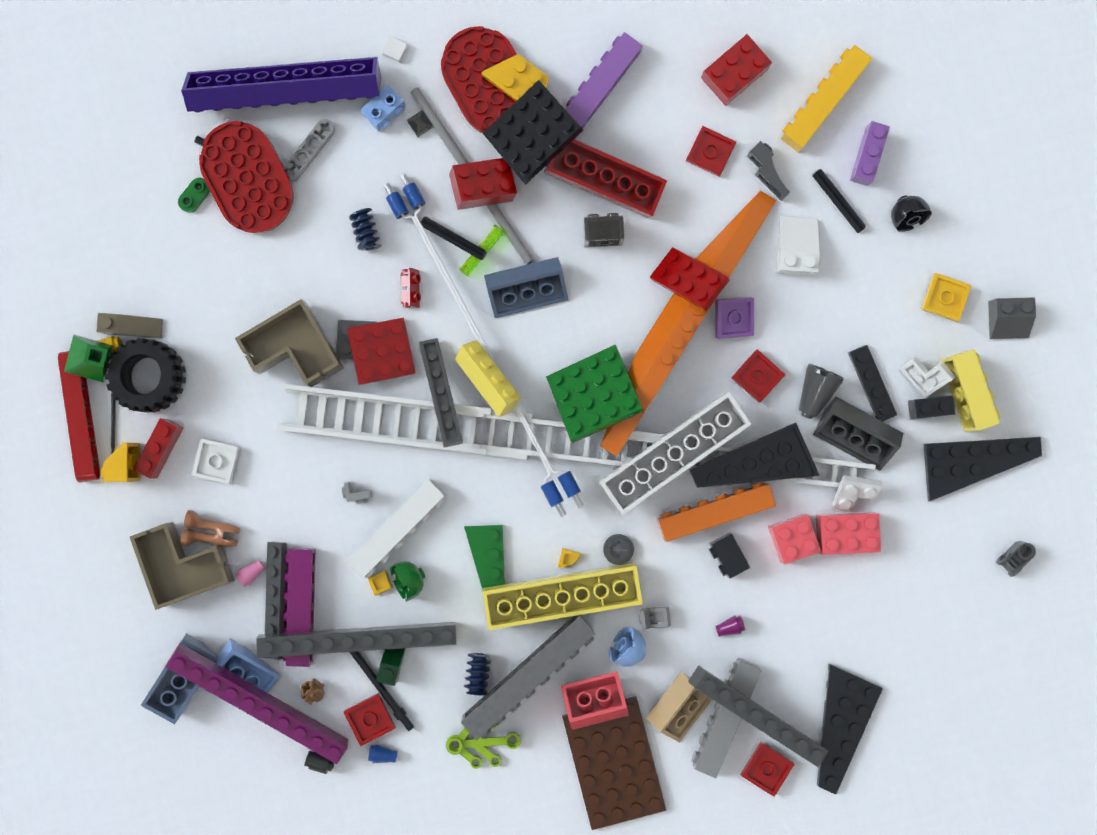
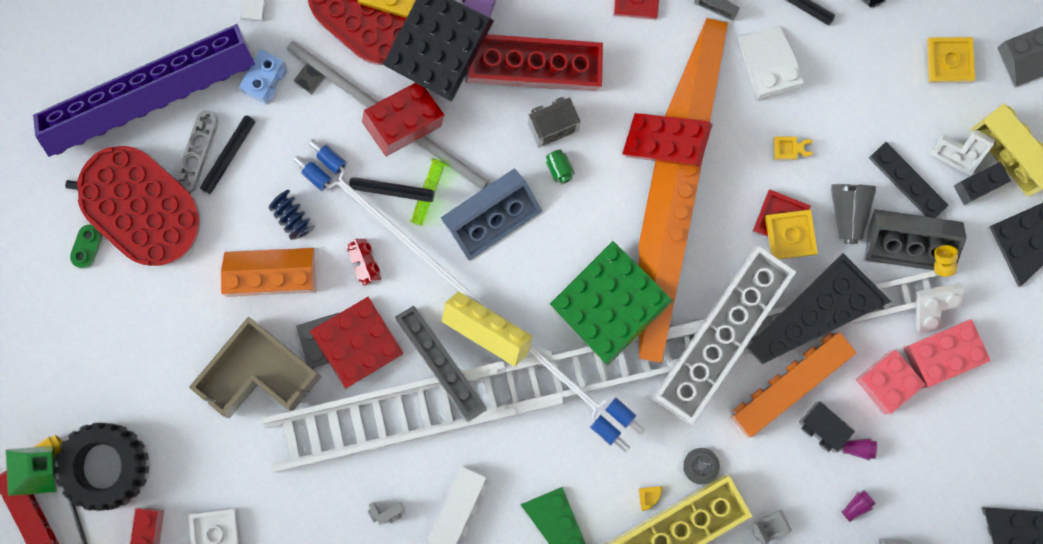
camera: 25 degrees left, 5 degrees down
(129, 325) = (63, 417): dark tan slope -> none
(331, 268) = (268, 272): none -> orange slope
(334, 160) = (227, 154): none -> black axle
(595, 269) = (560, 166): none -> green brick
(734, 317) = (731, 164): medium lavender plate -> none
(751, 582) = (861, 448): none -> magenta cone
(760, 392) = (791, 234): none -> yellow plate
(785, 321) = (787, 148): none -> yellow plate
(876, 459) = (945, 260): none -> yellow wheel

